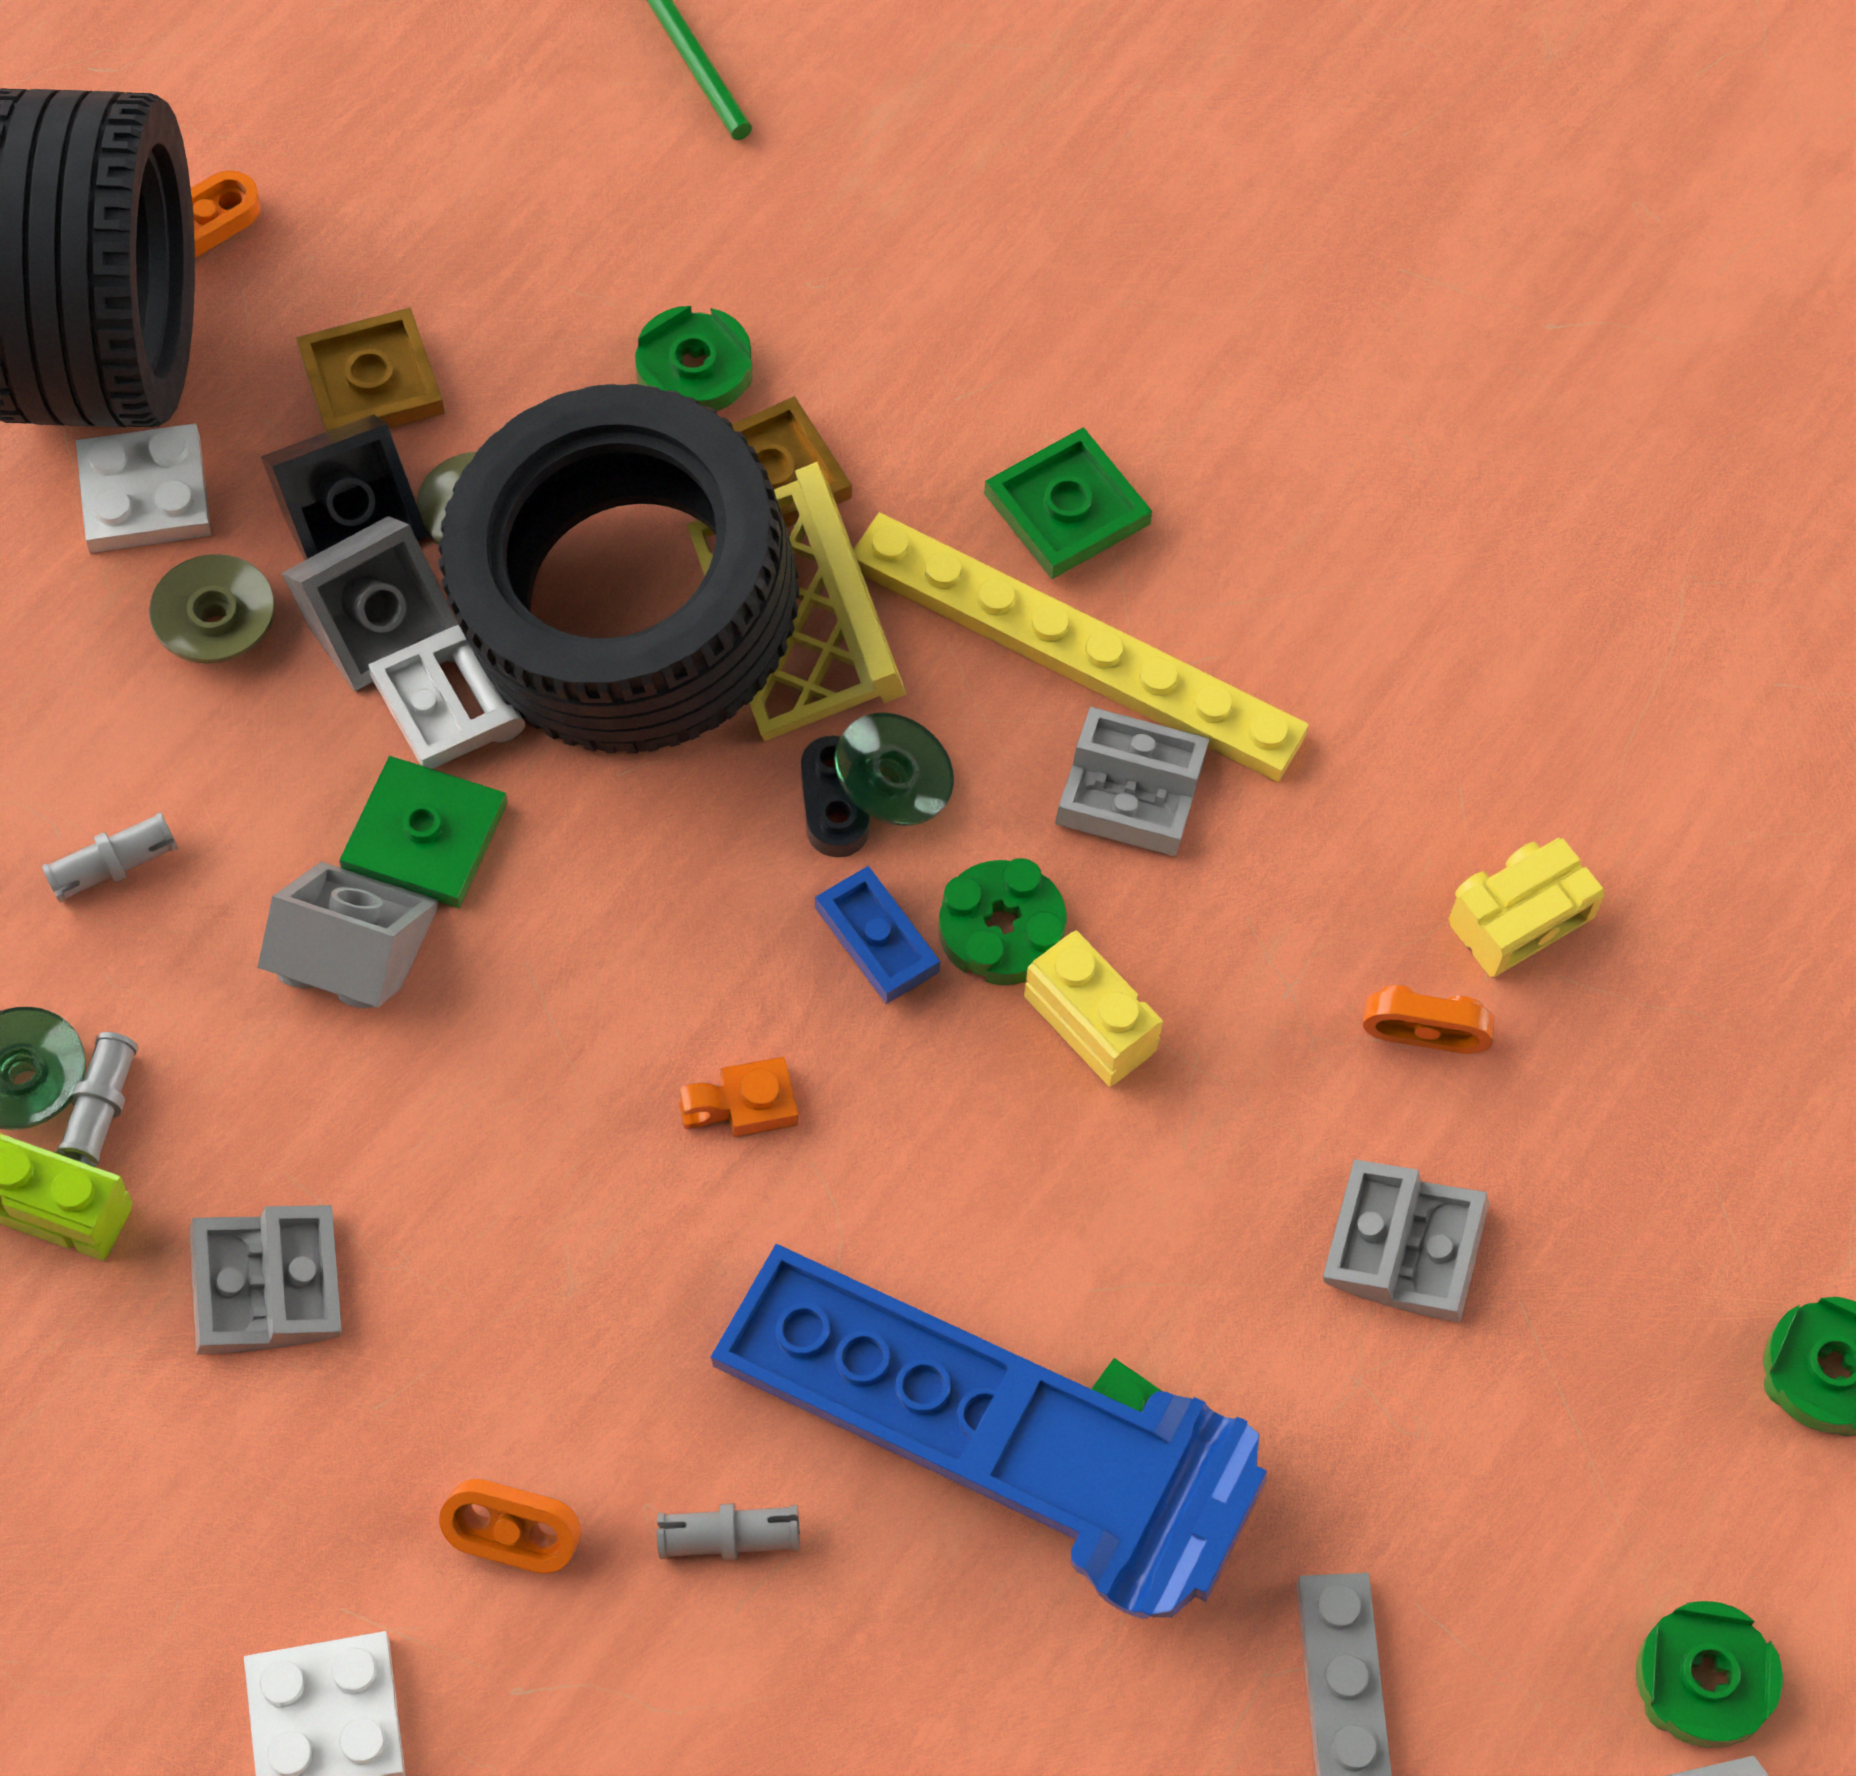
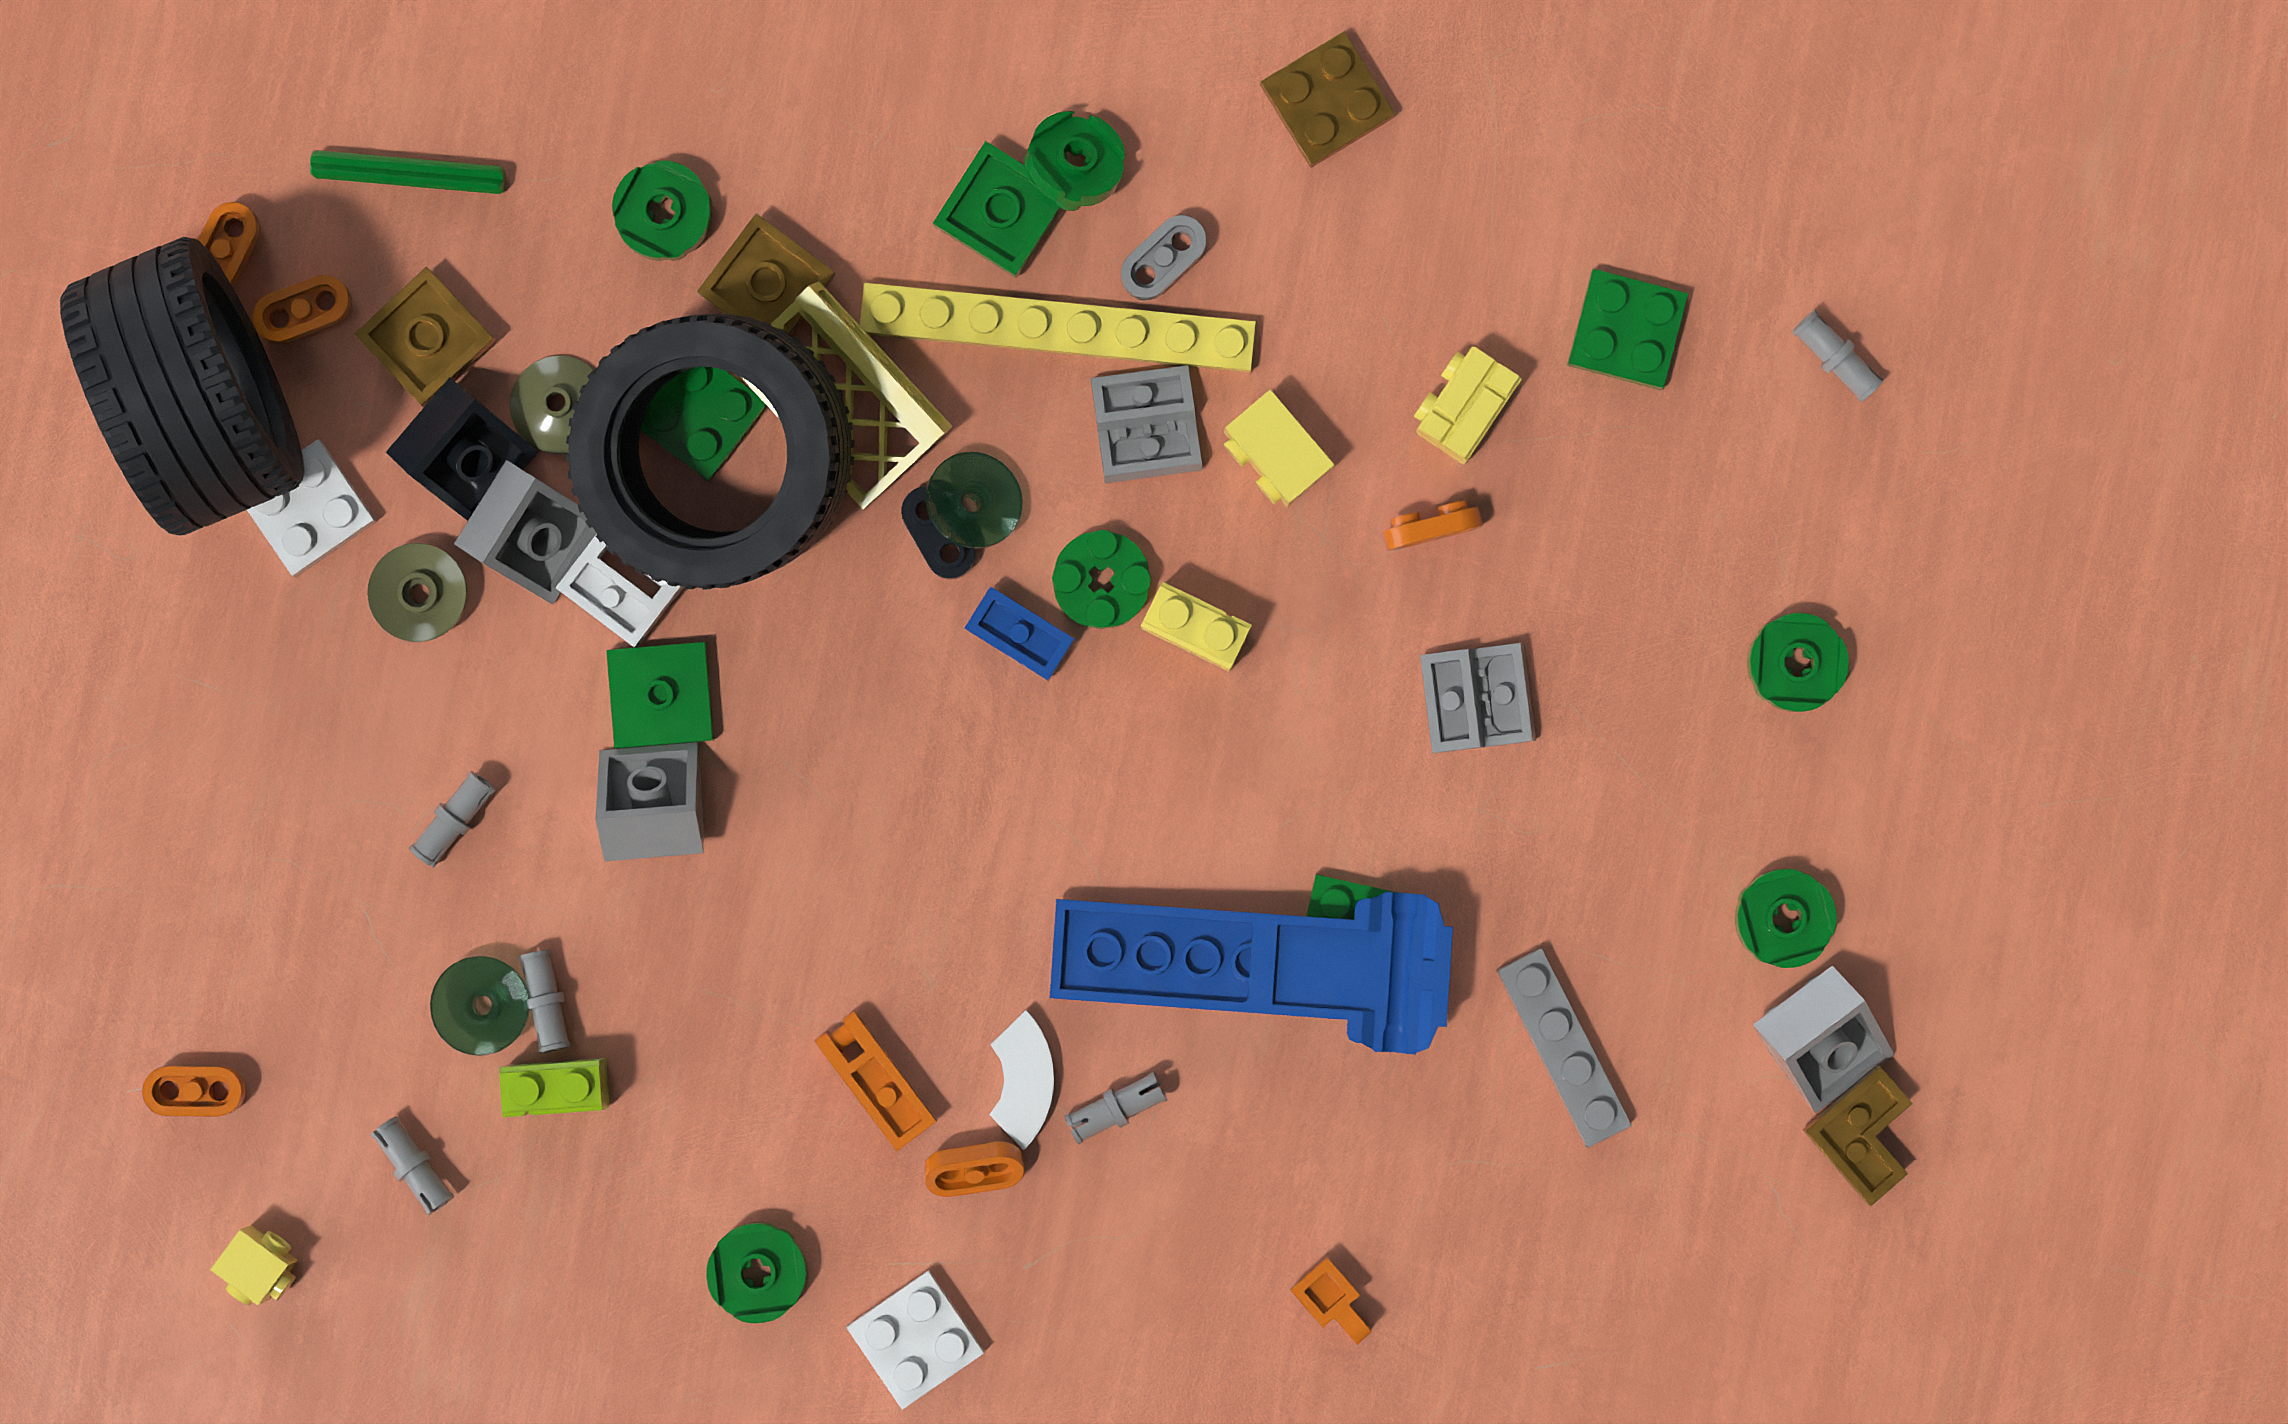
camera: 20 degrees left, 25 degrees up
(187, 1571) = (738, 1294): none -> green plate
(257, 299) = (303, 307): none -> orange plate
(264, 1280) = (724, 1073): light grey slope -> none
(443, 225) = (407, 172): none -> green axle
(444, 1371) = (876, 1082): none -> orange plate
(626, 569) = (702, 417): none -> green plate
(632, 1452) = (1027, 1079): none -> white tile
(751, 1096) = (987, 794): orange plate -> none
(1175, 481) = (1067, 183): none -> green plate
(1227, 621) = (1162, 258): none -> light grey plate
(1277, 862) = (1276, 449): none -> light yellow brick
(1487, 545) = (1327, 99): none -> pearl gold plate
(1750, 911) = (1627, 329): none -> green plate

